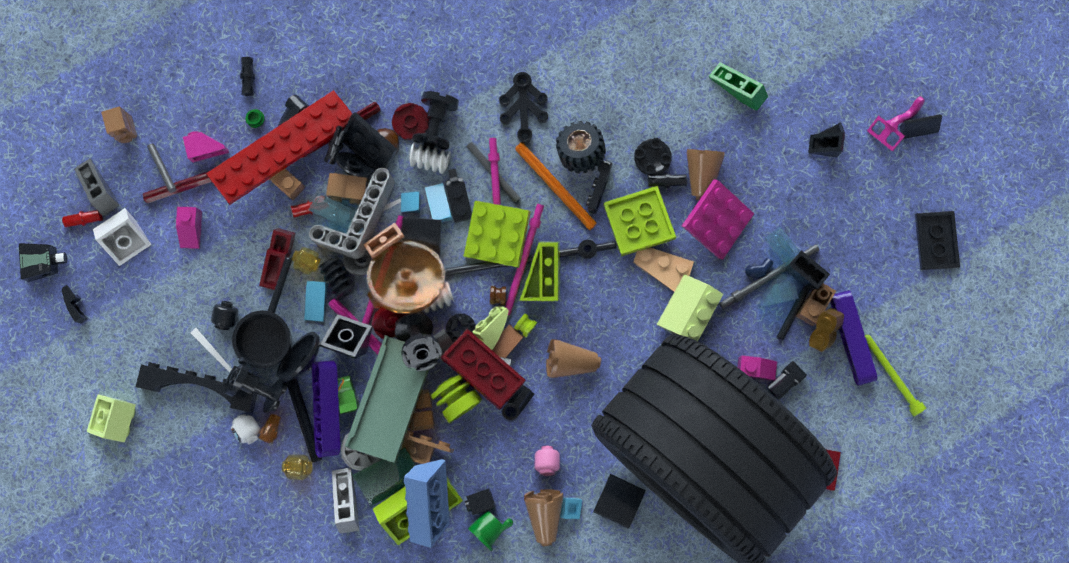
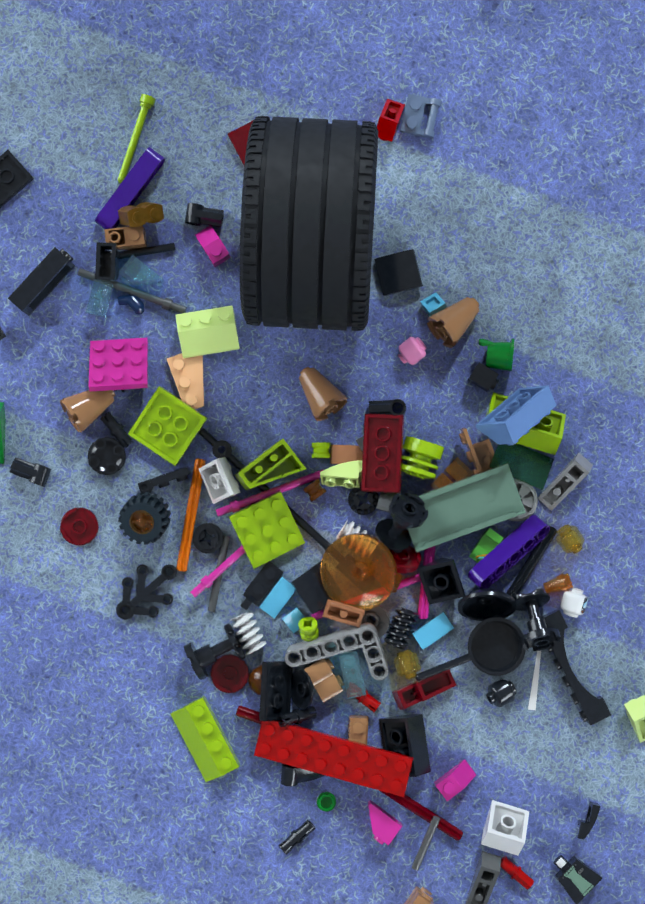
camera: 130 degrees left, 5 degrees up
(251, 214) = (407, 737): none -> black slope
(375, 65) = (205, 739): none -> lime slope
(391, 202) = (308, 628): none -> lime wheel
(522, 177) = (200, 534): none -> black gear
(564, 227) = (219, 480): none -> white slope
(614, 95) = (83, 522): none -> dark red tile
(683, 92) = (34, 473): none -> black piece
(831, 211) = (42, 281): none -> black window

